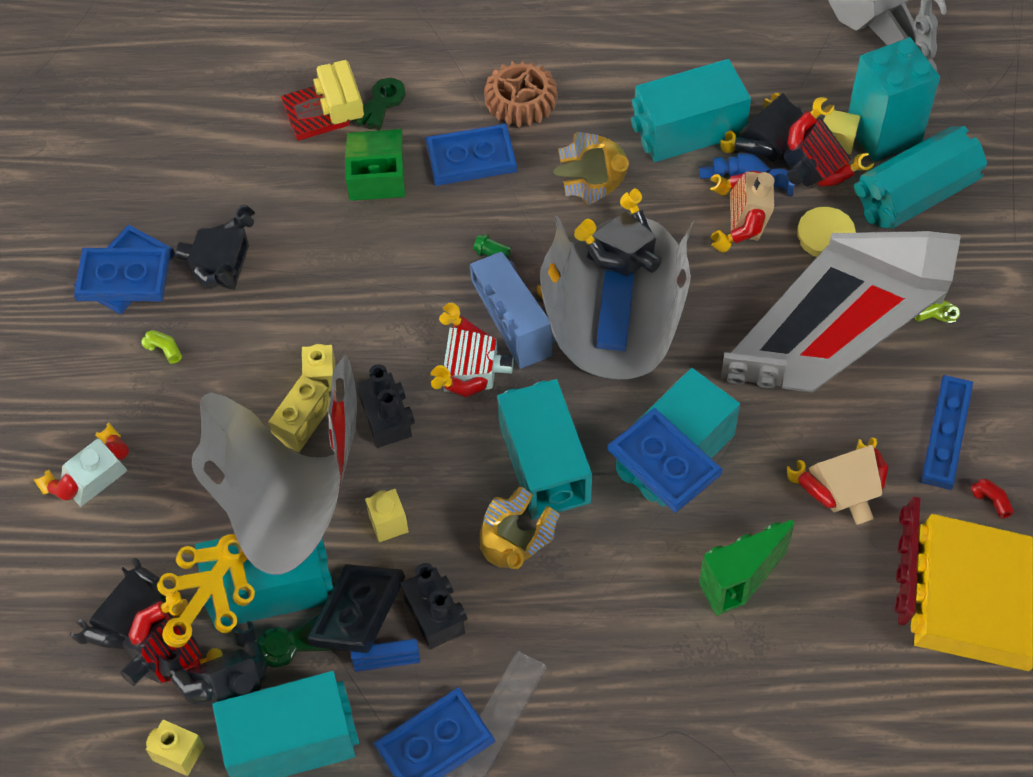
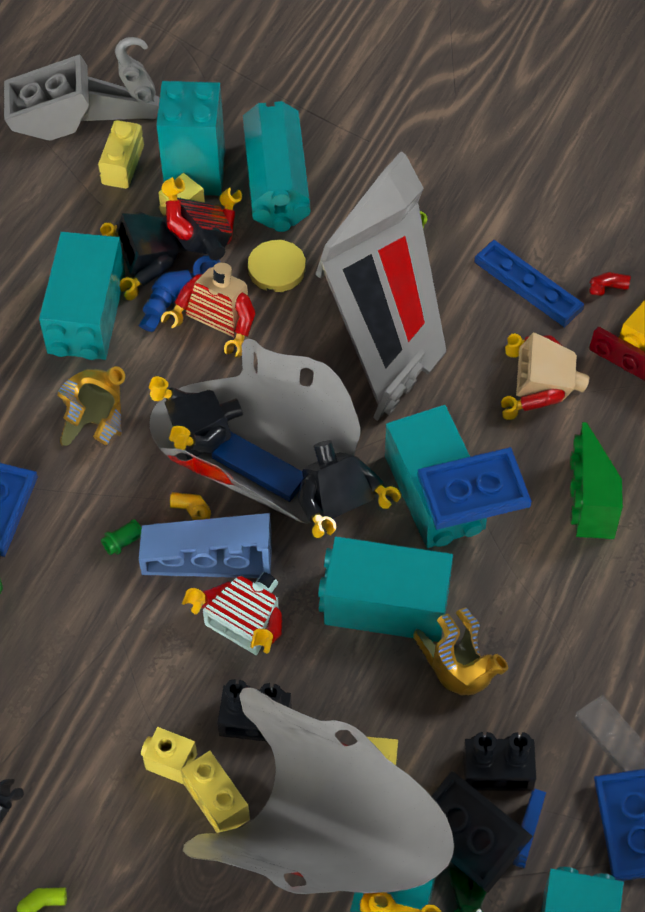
camera: 65 degrees left, 0 degrees up
(619, 367) = (338, 485): none -> black torso
(842, 70) = (121, 154): none -> light yellow brick

